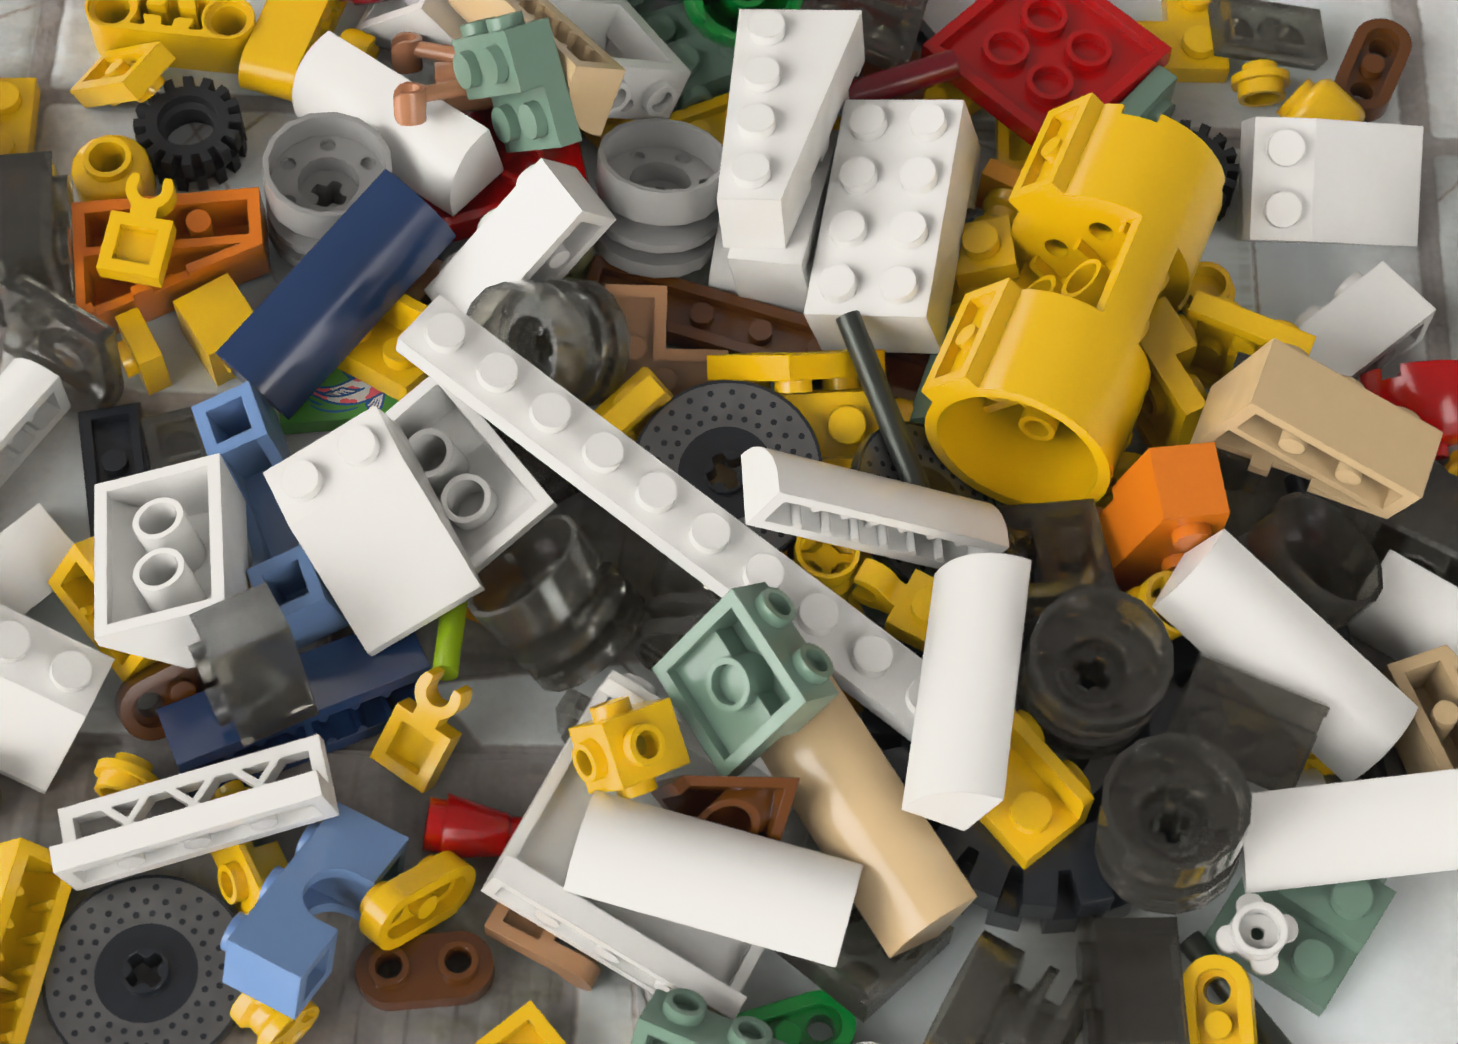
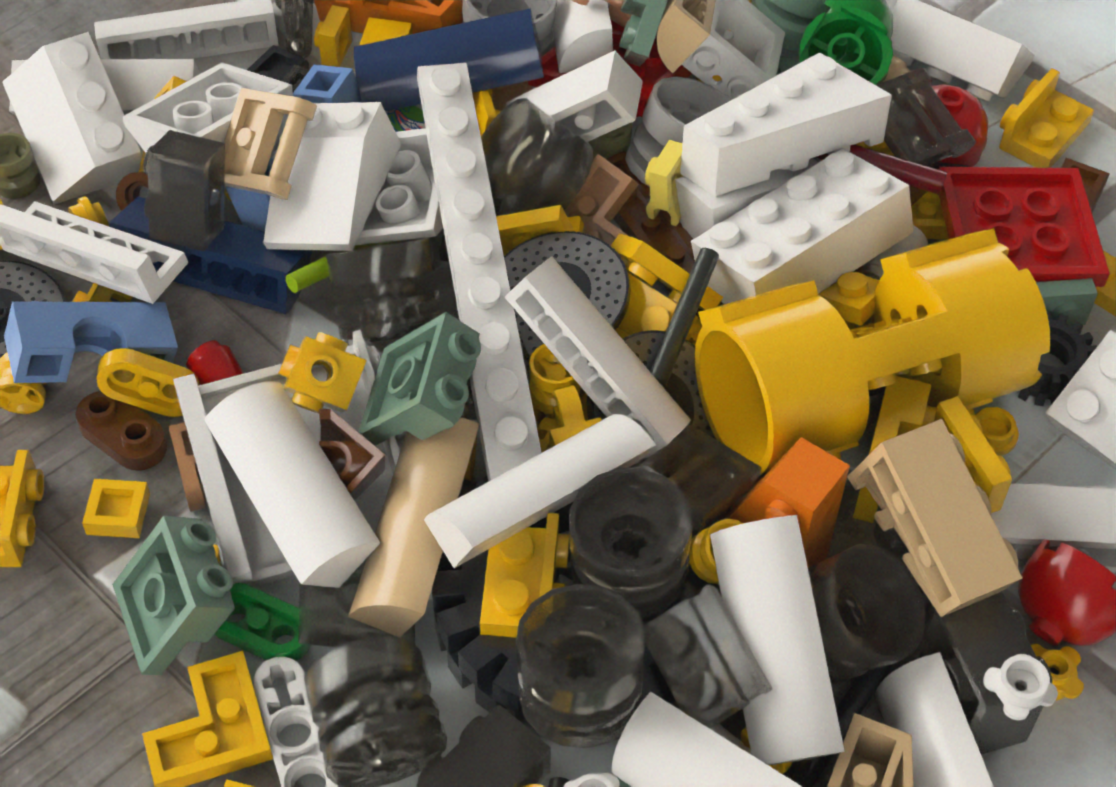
camera: 45 degrees right, 10 degrees down
(266, 549) = (253, 137): none -> tan plate
(417, 733) = (248, 307): yellow plate -> none
(708, 264) = (661, 179): none -> light yellow plate

